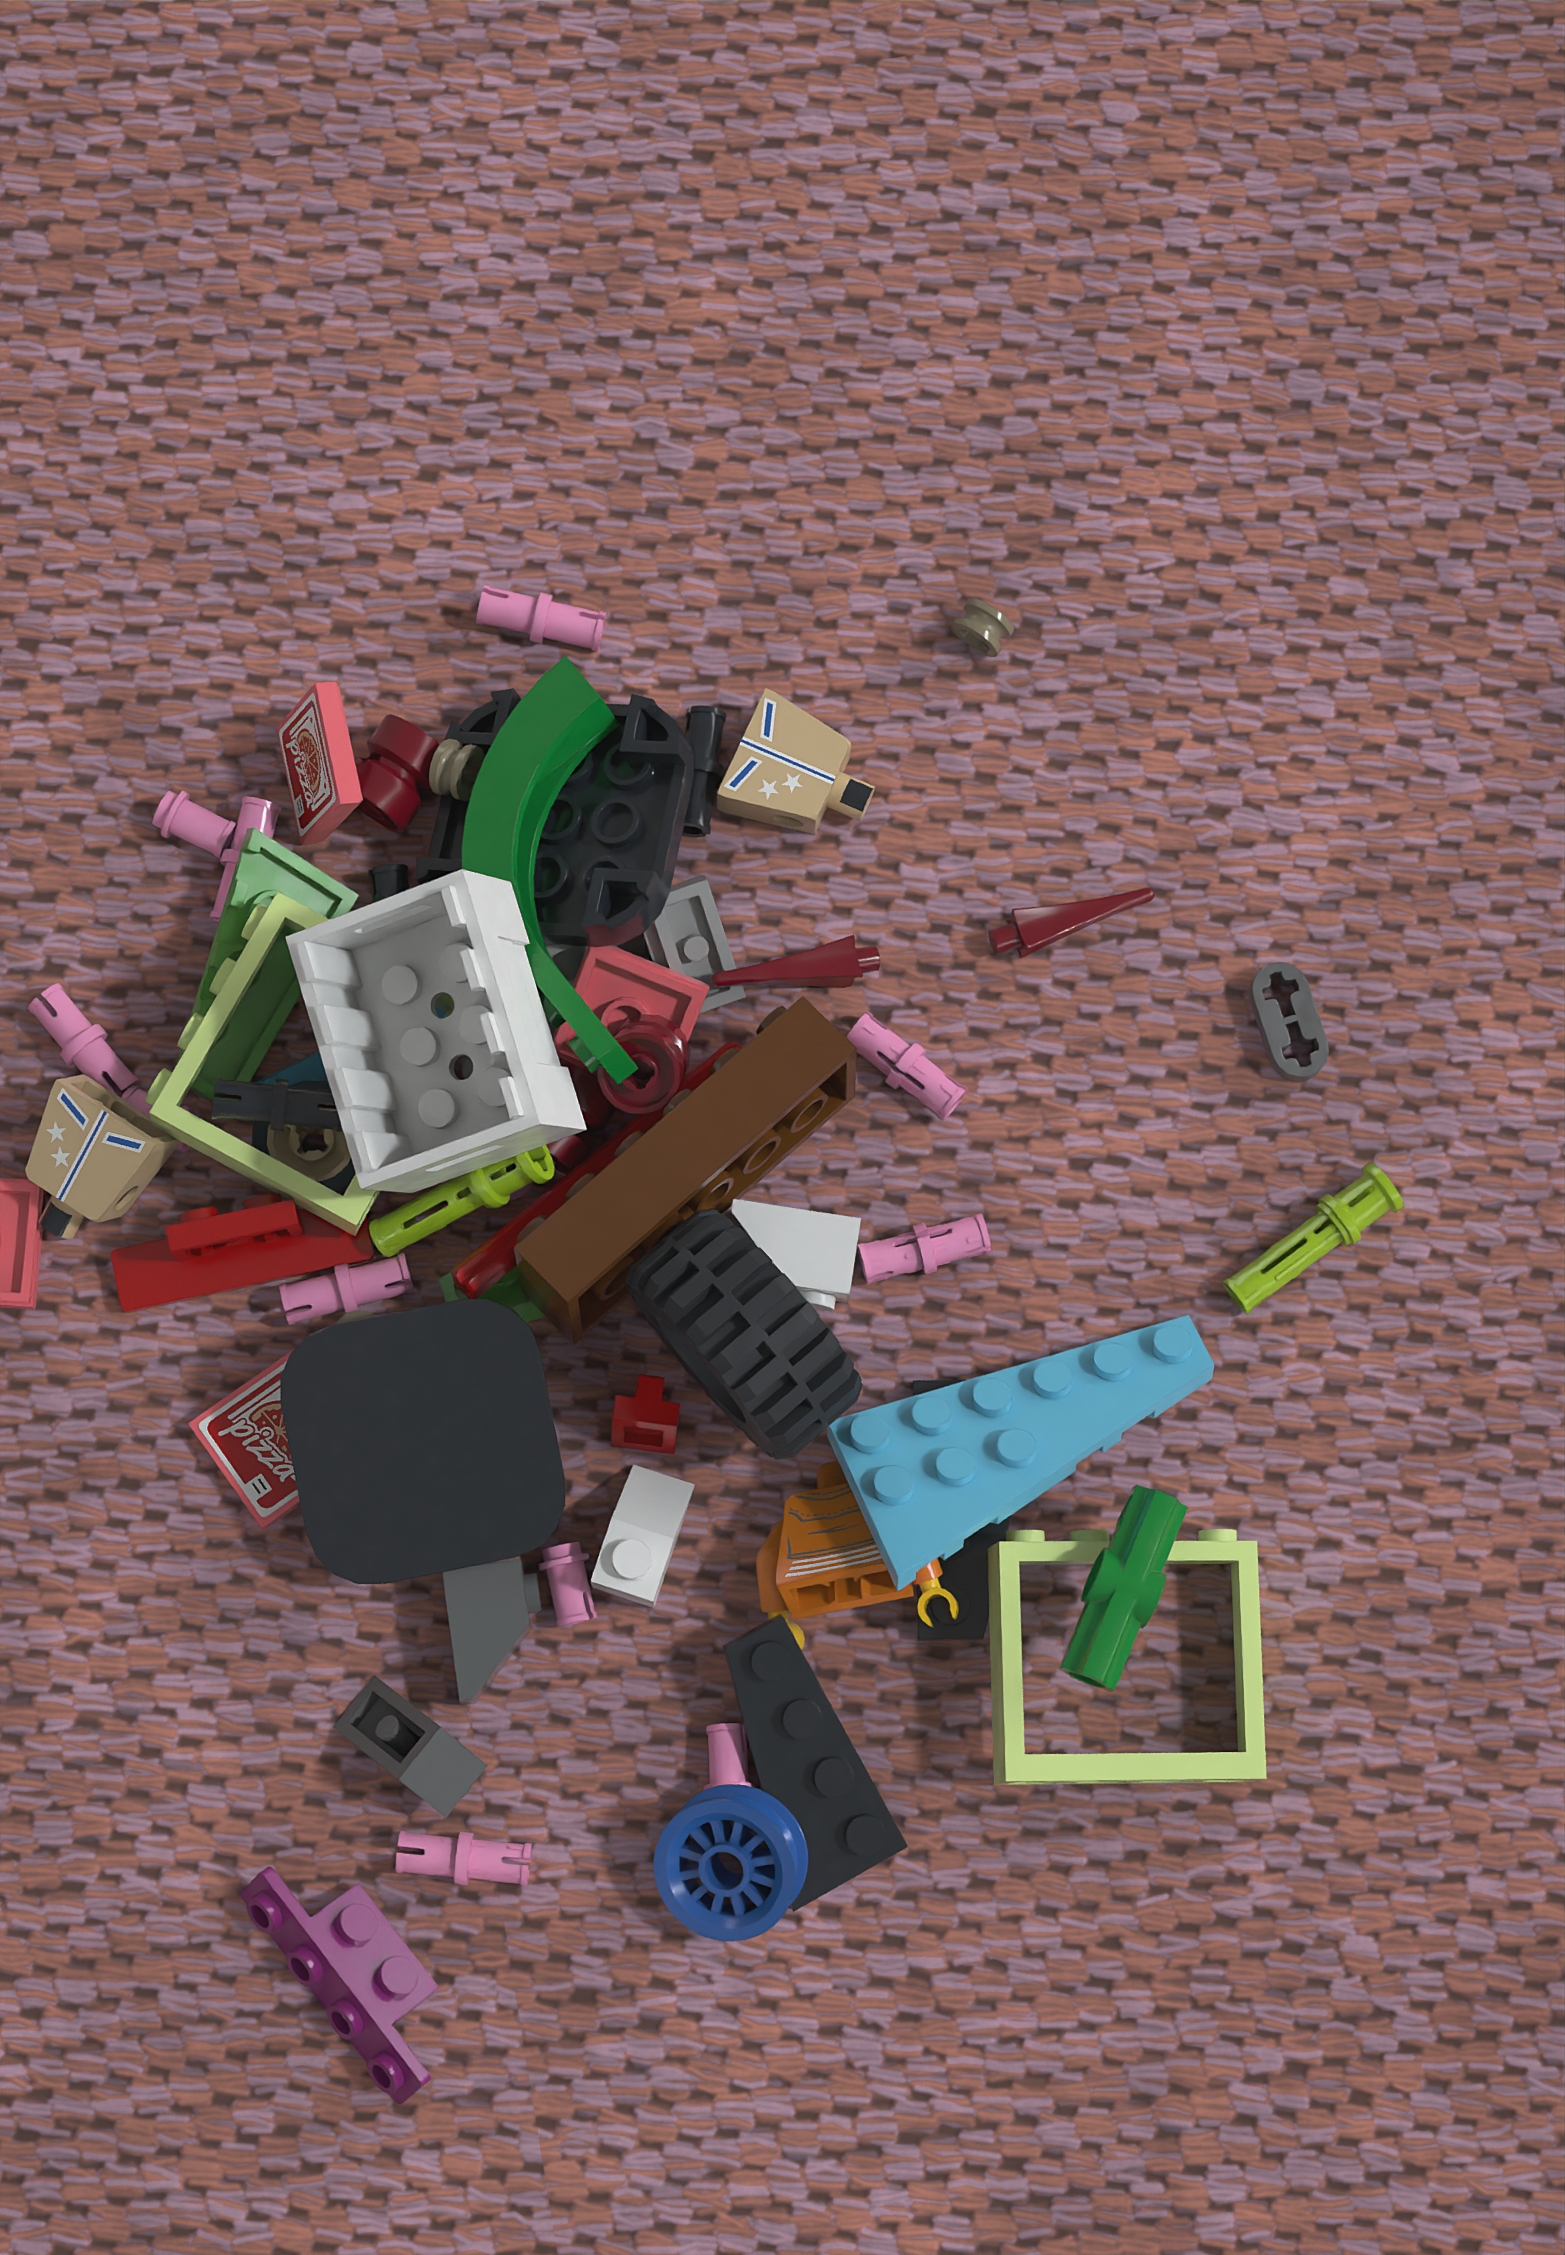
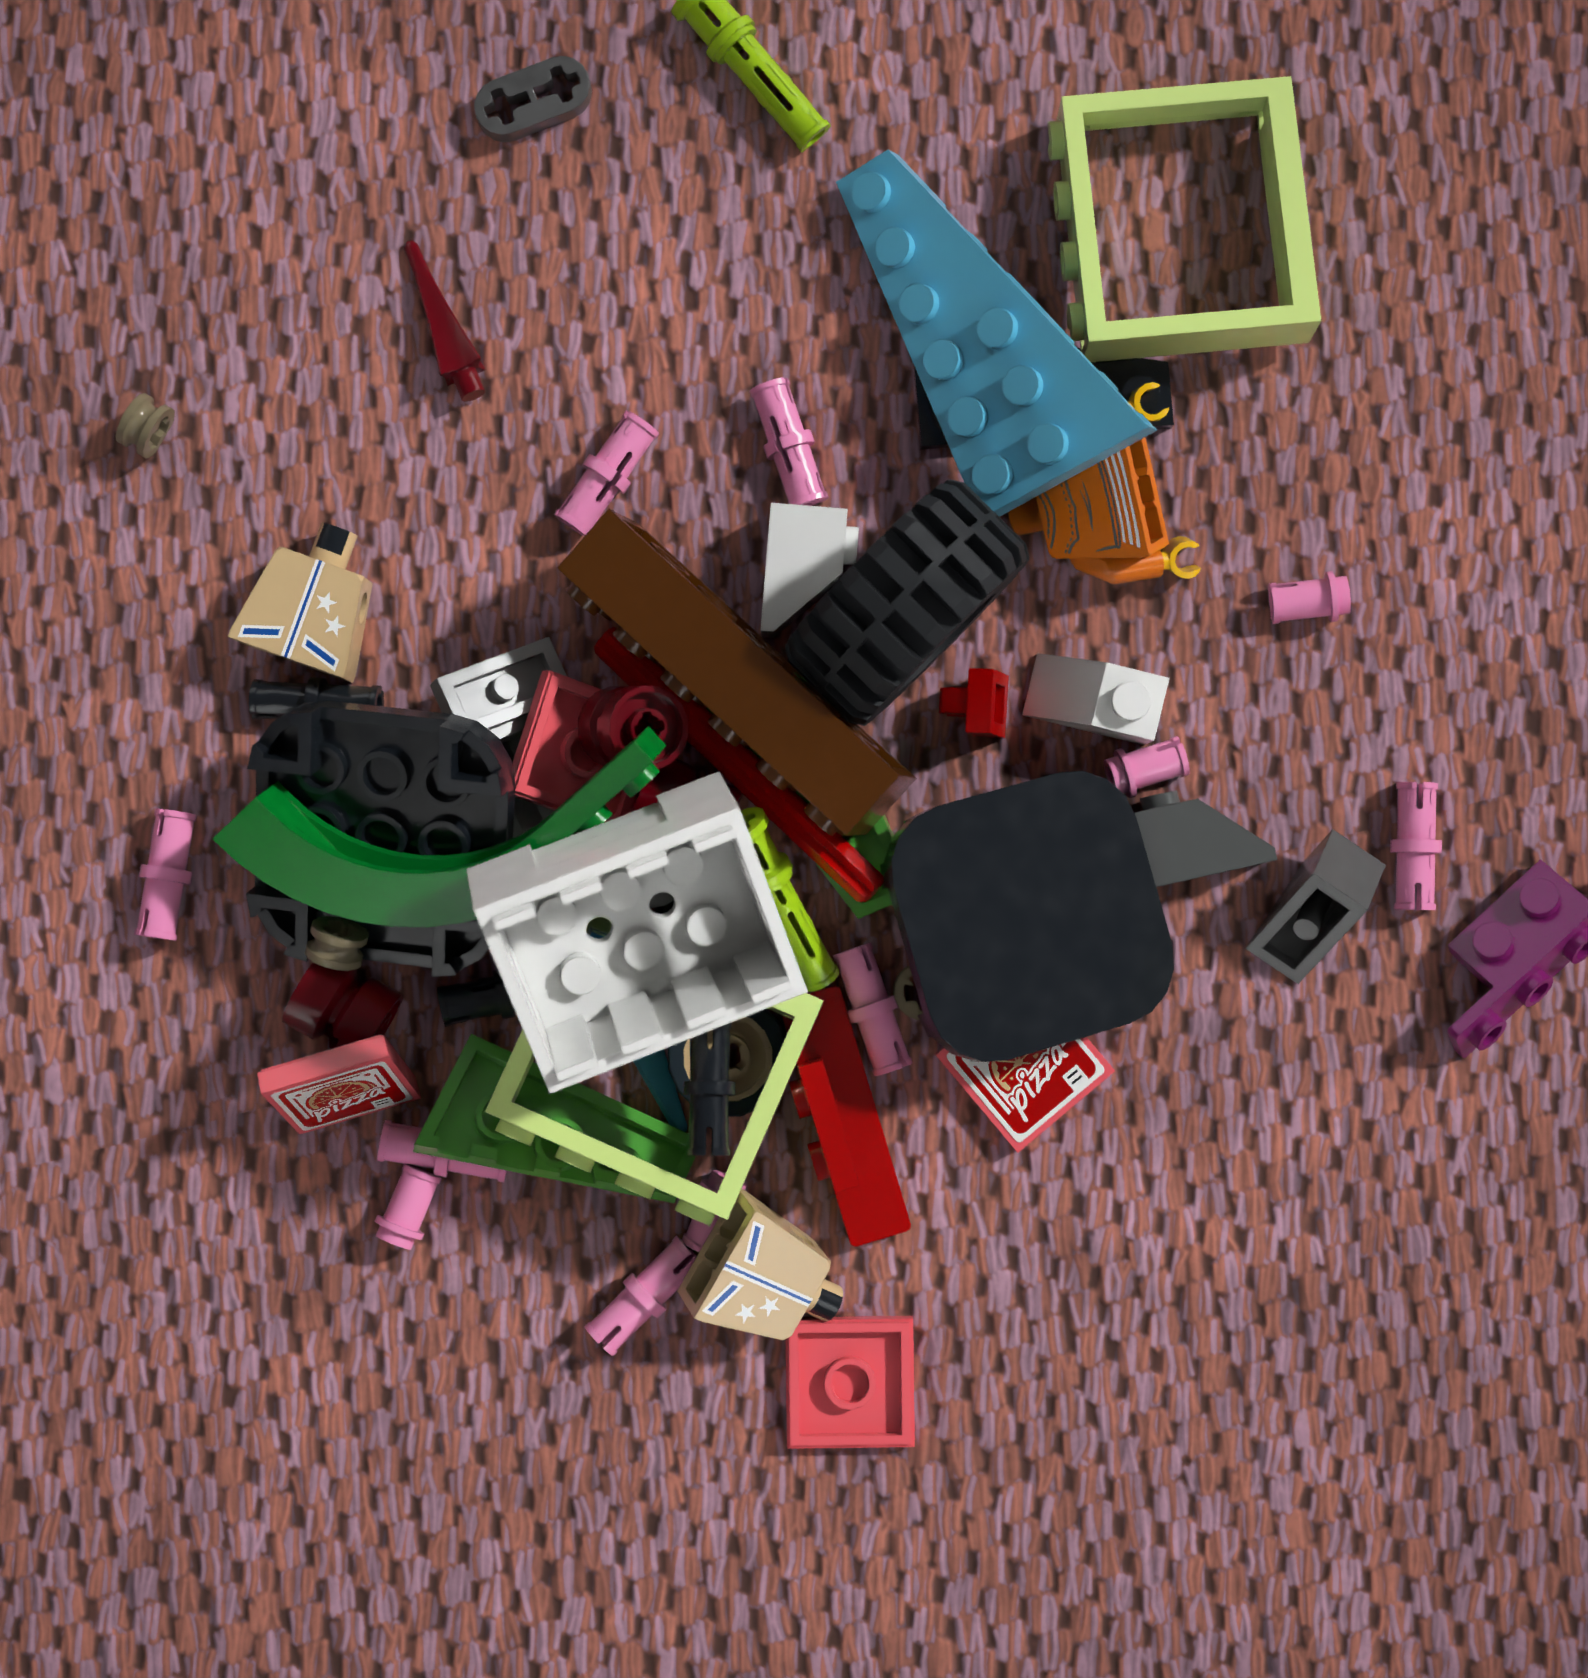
camera: 90 degrees left, 10 degrees up
(677, 1876) = (1442, 592): blue wheel -> none
(808, 1759) = (1319, 516): black wing -> none
(825, 965) = (510, 558): dark red piece -> none
(1123, 1588) = (1128, 214): green piece -> none

